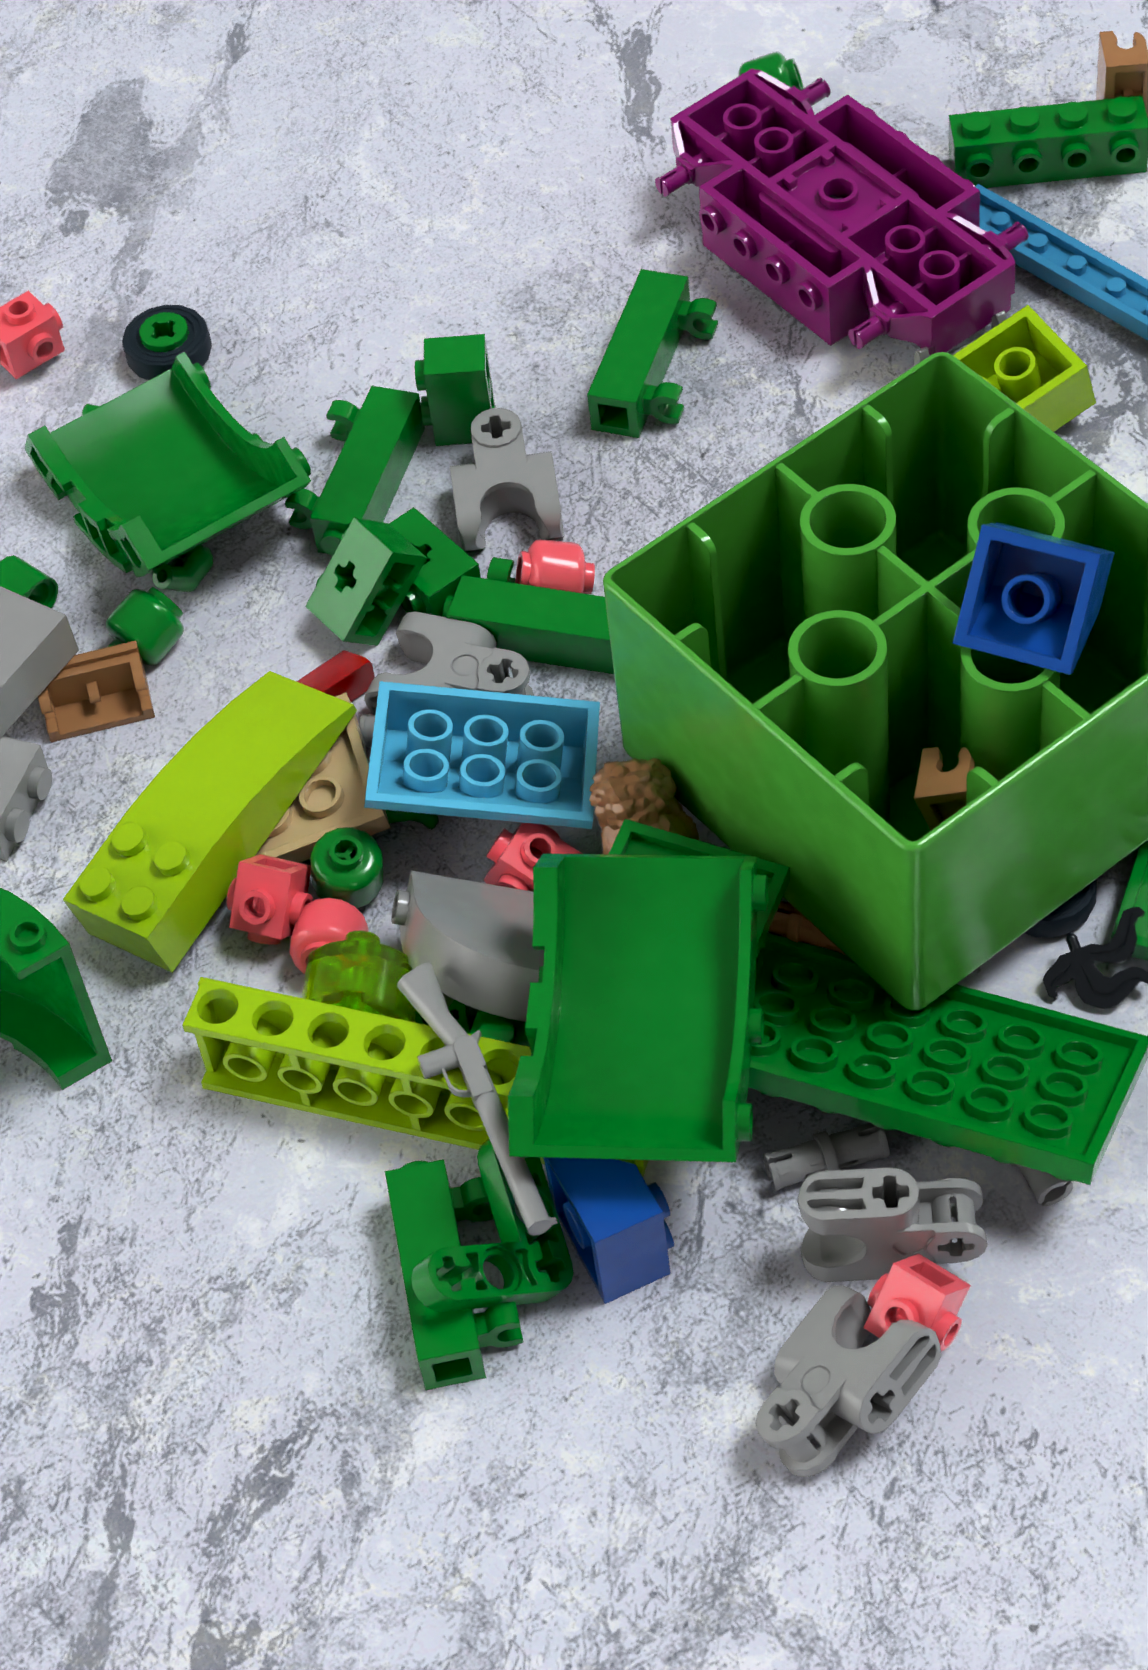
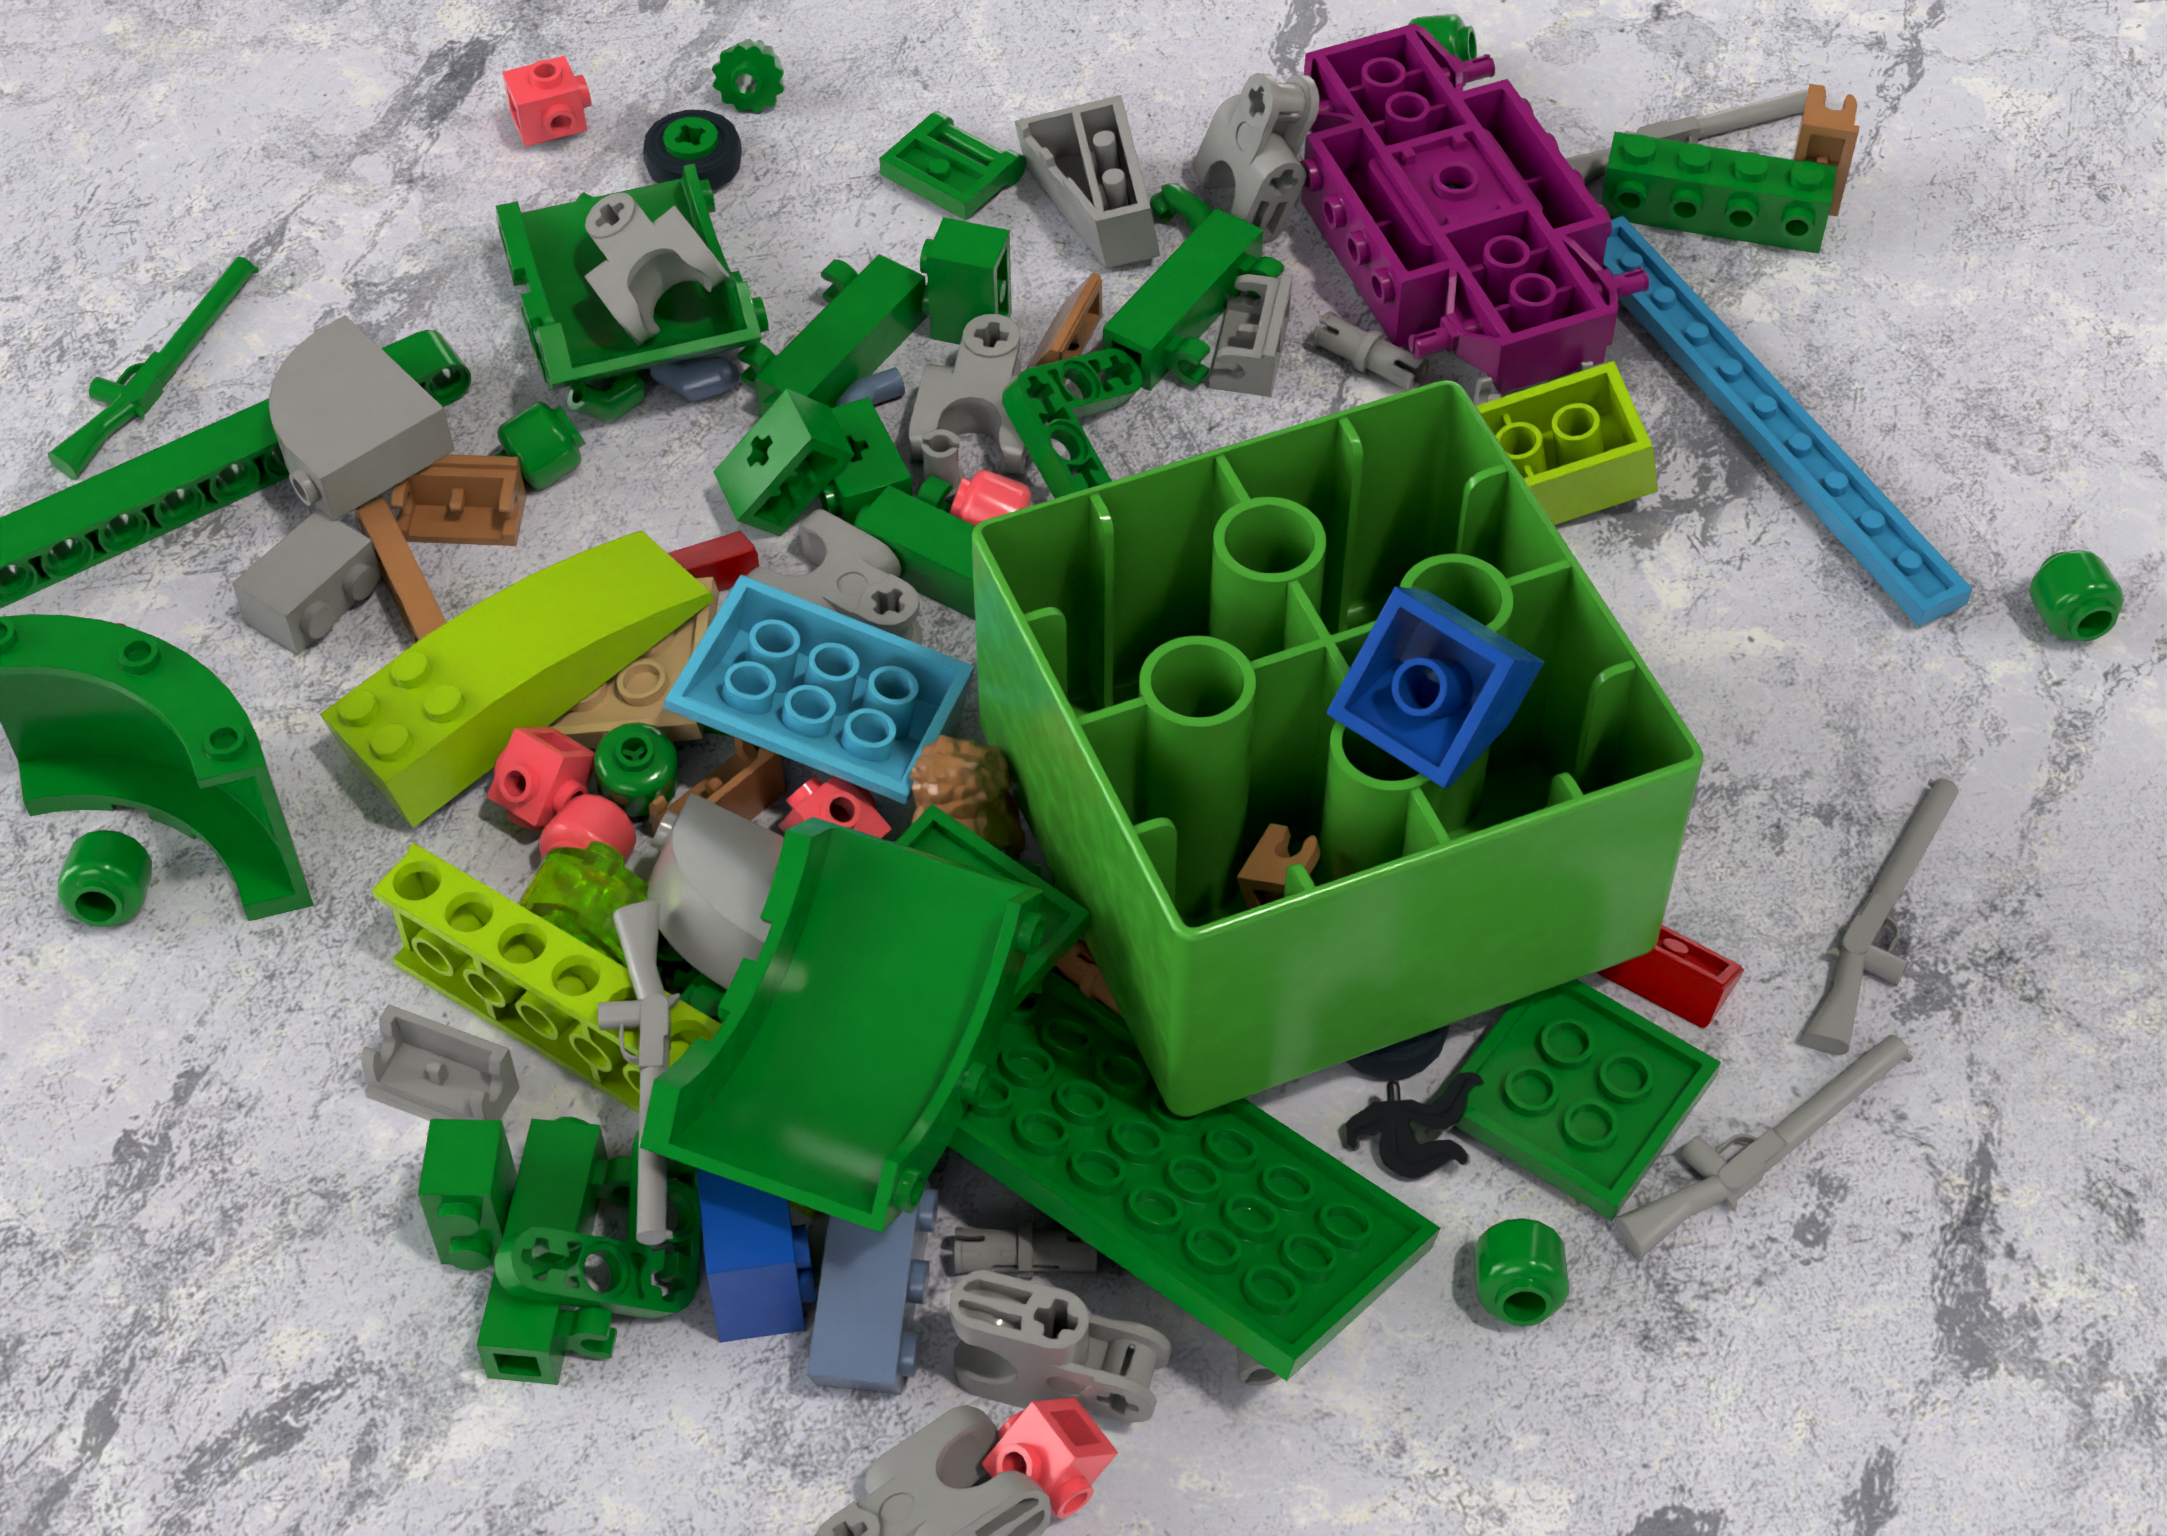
camera: 10 degrees right, 0 degrees up
(75, 768) = (399, 569): none -> medium nougat beam
(176, 444) = (645, 261): none -> light grey piece
(188, 278) = (735, 81): none -> green piece
(254, 534) = (699, 379): none -> sand blue arm
(285, 1161) = (438, 1070): none -> light grey hinge
(360, 1244) = (467, 1189): none -> green brick
(394, 295) = (950, 166): none -> green plate
(414, 495) = (877, 387): none -> sand blue arm
(433, 852) = (741, 784): none -> medium nougat hinge
(494, 542) = (942, 459): none -> light grey pin
(525, 271) = (1093, 177): none -> light grey wedge
(552, 409) = (1072, 324): none -> medium nougat slope
(571, 478) = (1061, 408): none -> green beam
(600, 271) = (1175, 200): none -> green arm
(658, 206) = (1256, 148): none -> light grey piece
(709, 368) = (1253, 336): none -> light grey hinge
(721, 1231) = (871, 1300): none -> sand blue wedge
(812, 354) = (1370, 351): none -> light grey pin
(1005, 95) = (1691, 129): none -> light grey piece

